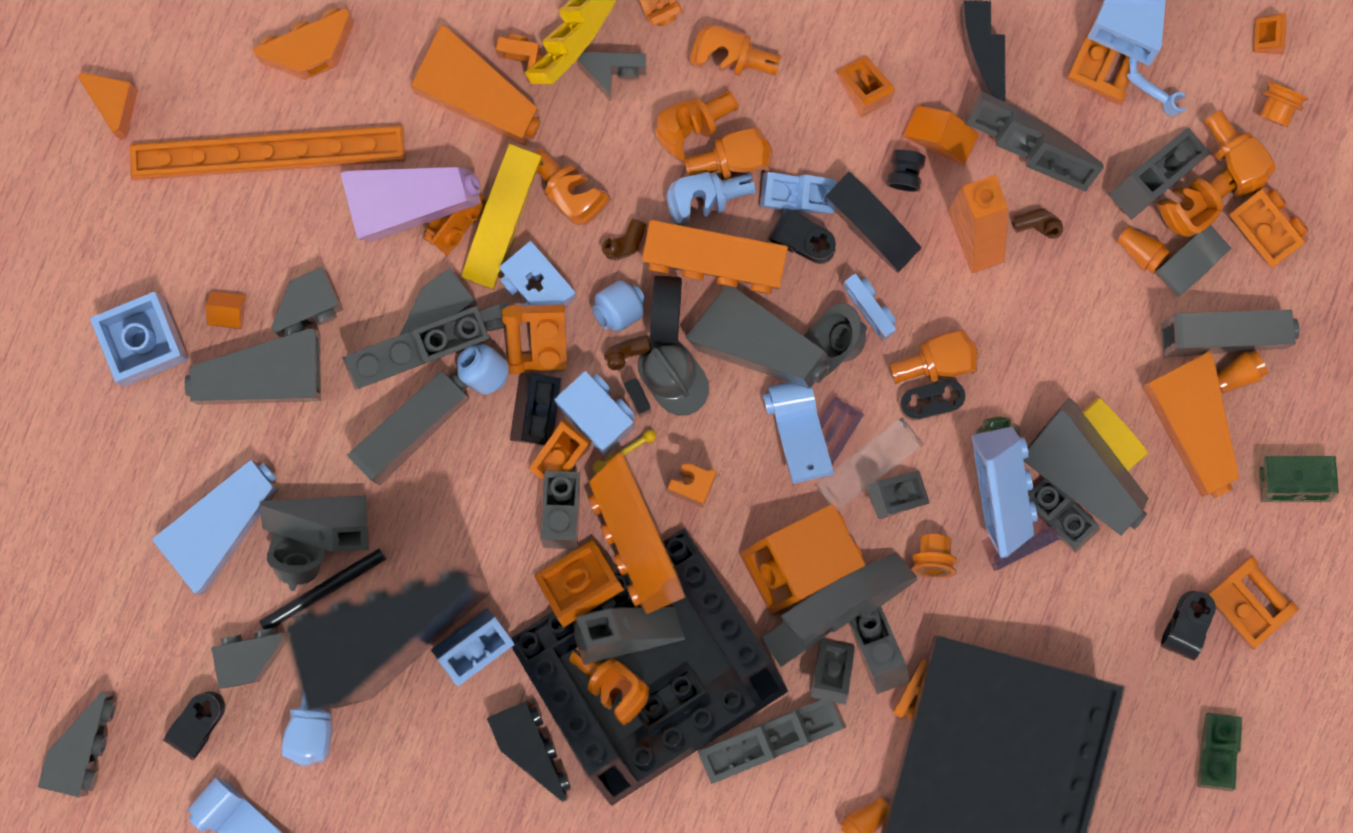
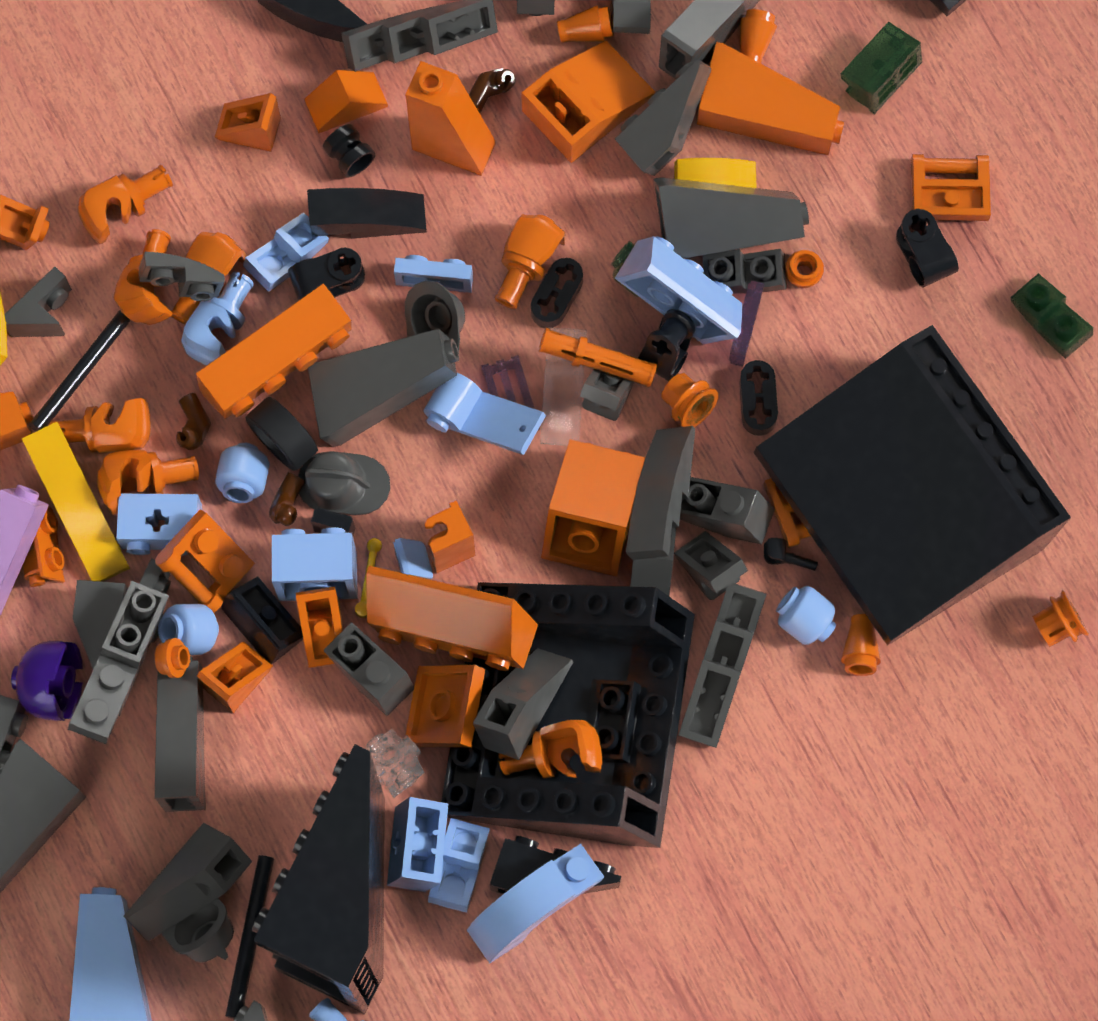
camera: 50 degrees left, 10 degrees down
(368, 310) = (47, 680): none -> dark purple cylinder
(449, 379) = (172, 658): none -> orange plate
(481, 425) = (234, 675): none -> orange slope
(487, 684) = (460, 866): none -> light blue slope
(500, 759) = (532, 901): none -> light blue arch
(515, 593) = (395, 761): none -> clear brick
(561, 240) = (140, 469): none -> orange piece
(590, 136) = (80, 372): none -> black bar
(660, 471) = (413, 558): none -> light blue slope
(714, 156) = (193, 277): none -> dark grey slope
(853, 767) = (806, 615): none -> light blue head
(881, 707) = (776, 554): none -> black hand
(909, 479) = (606, 360): none -> orange pin
(959, 510) = (669, 343): none -> black piece
(973, 595) = (767, 397): none -> black beam
(1089, 297) = (584, 99): none -> orange slope
(1109, 545) = (808, 259): none -> orange plate
(1112, 370) = (664, 125): none -> dark grey slope

